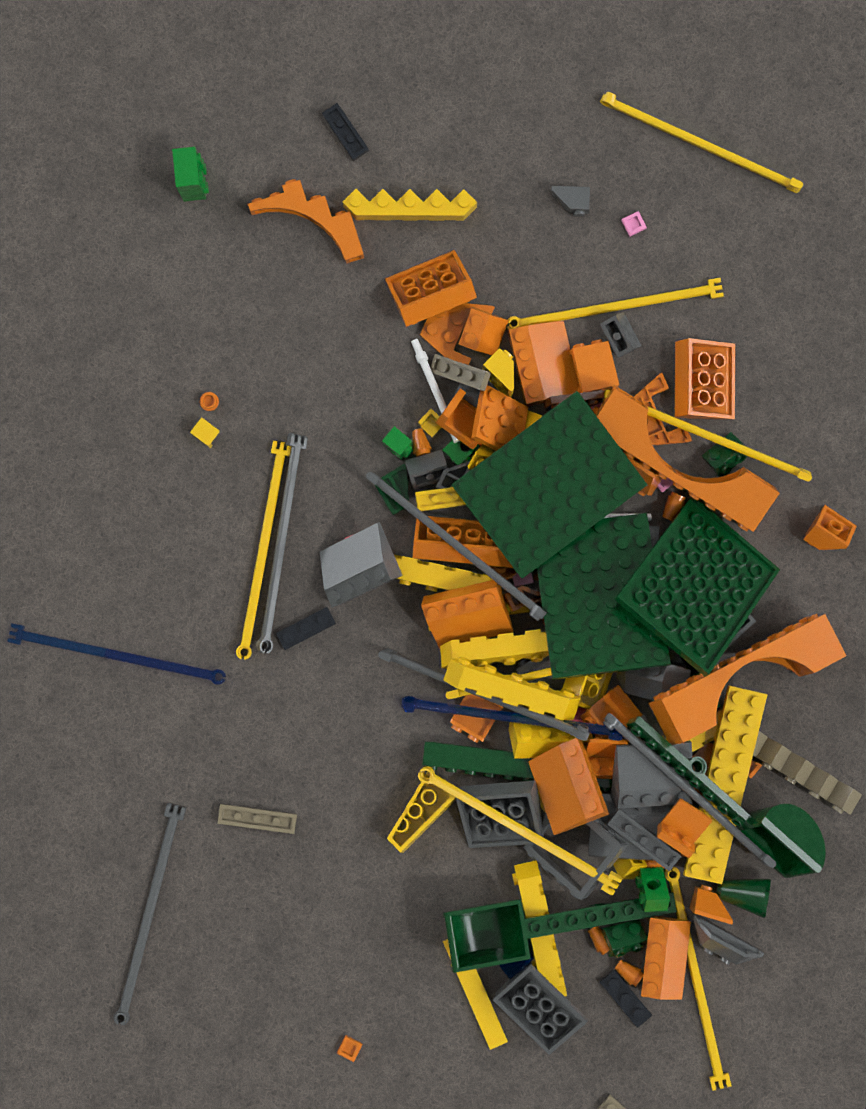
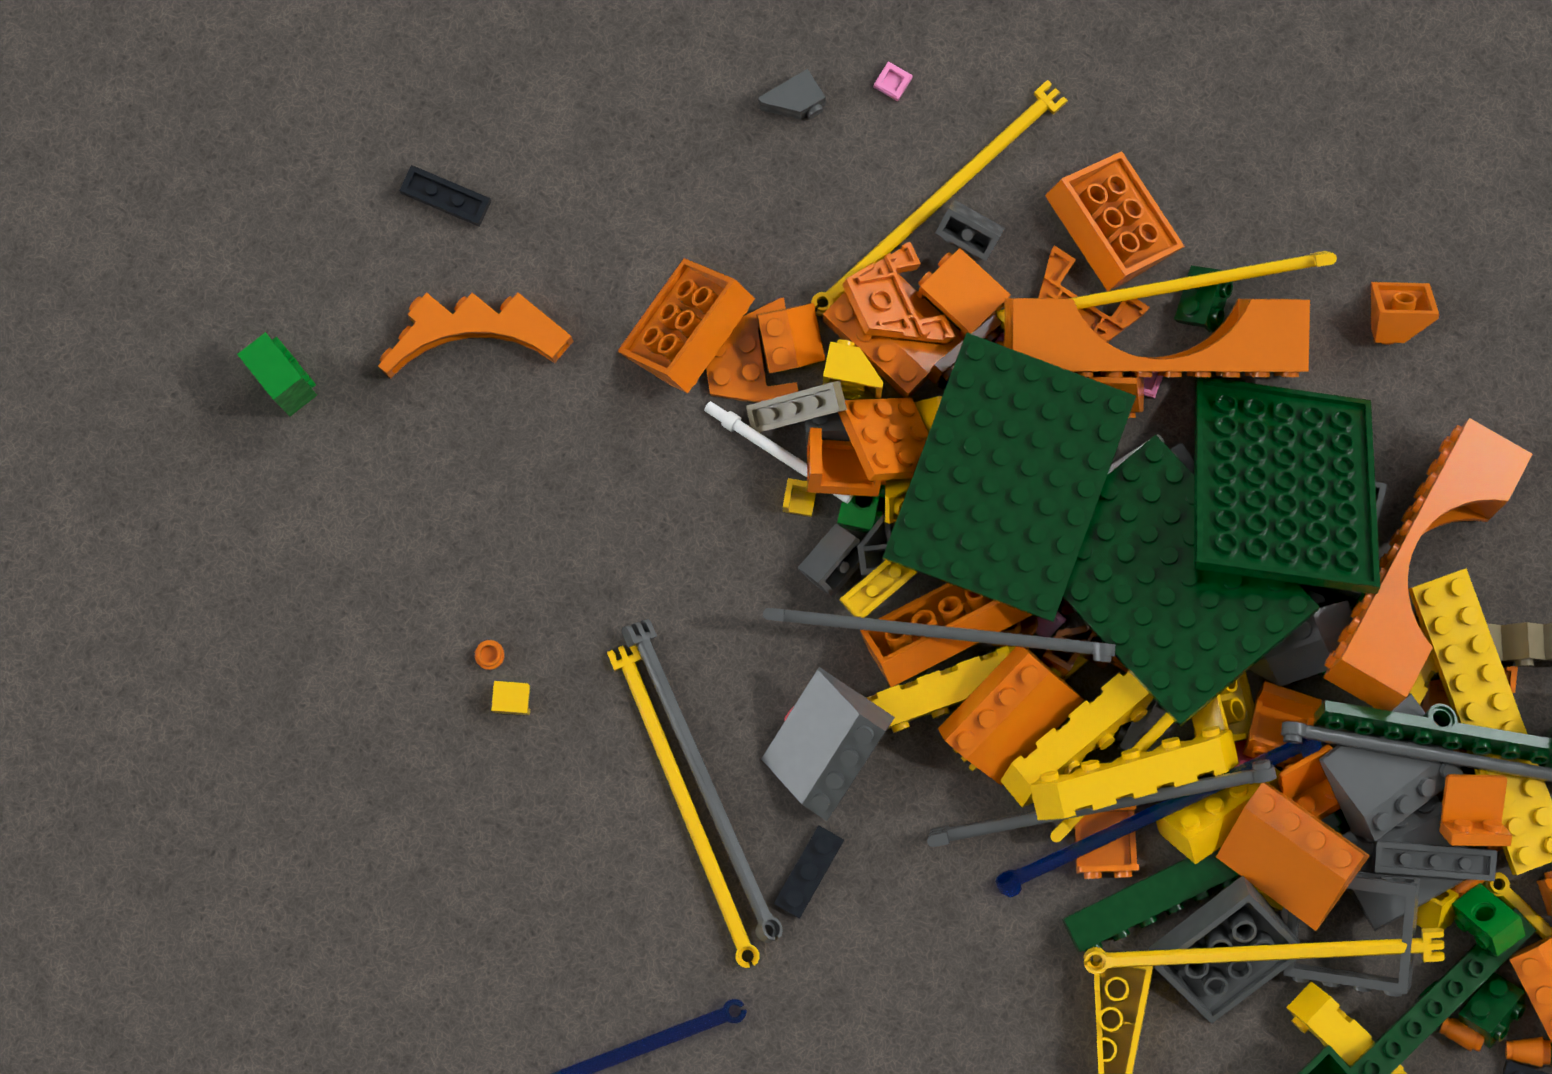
camera: 30 degrees left, 5 degrees down
(398, 443) = (774, 551): green brick -> none
(398, 481) = (804, 598): dark green wing -> none
(410, 207) = (591, 238): yellow brick -> none
(420, 443) = (802, 533): orange cone -> none
(545, 345) = (884, 304): none -> orange wing
(673, 506) = (1181, 403): orange cone -> none

